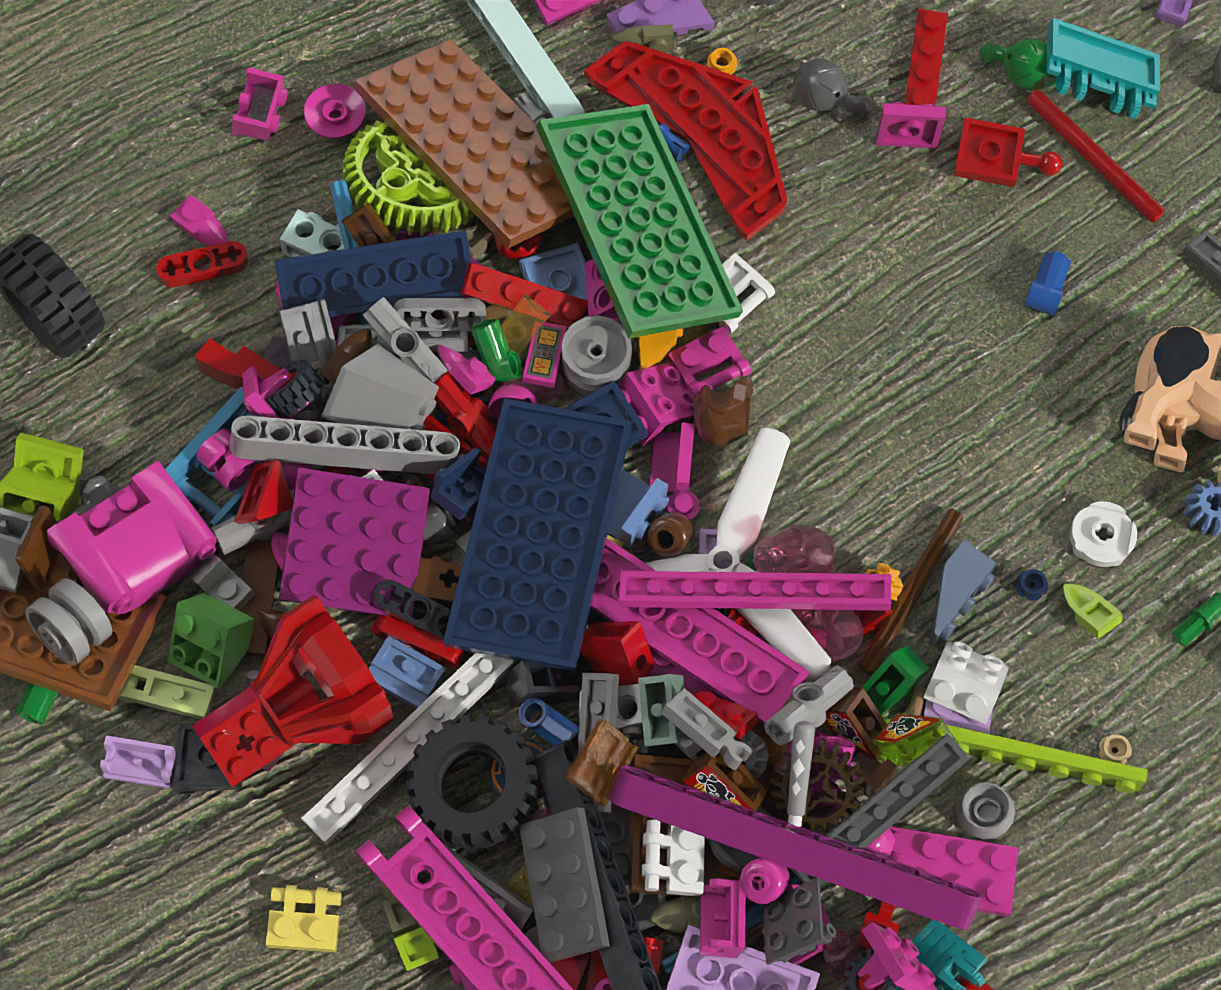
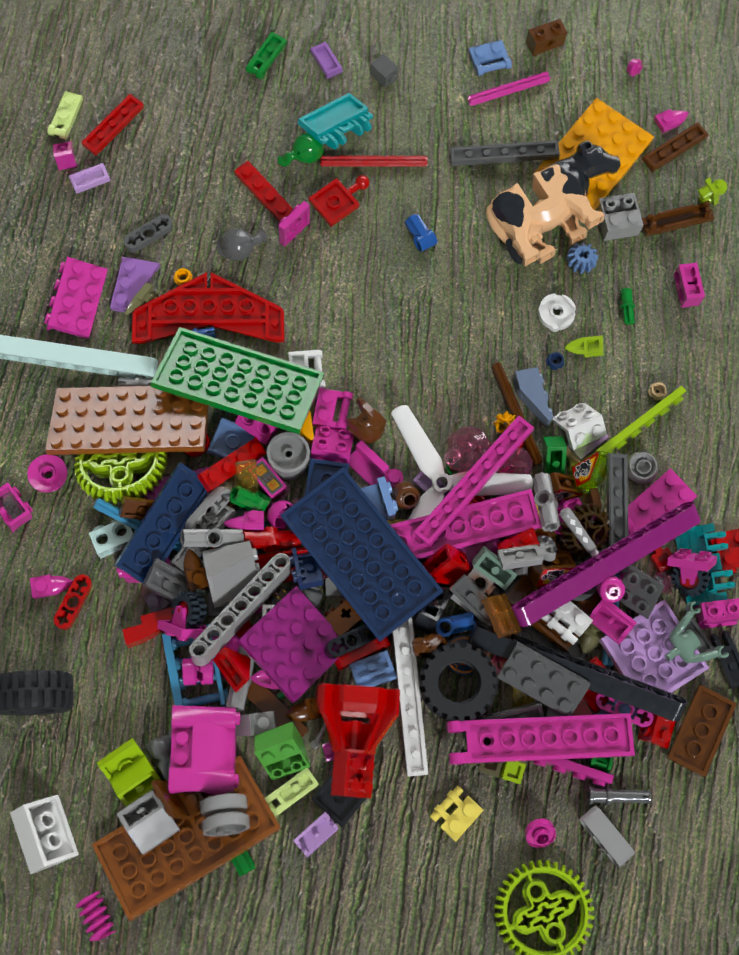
camera: 55 degrees left, 5 degrees up
(482, 701) = (425, 646): none -> reddish brown hair

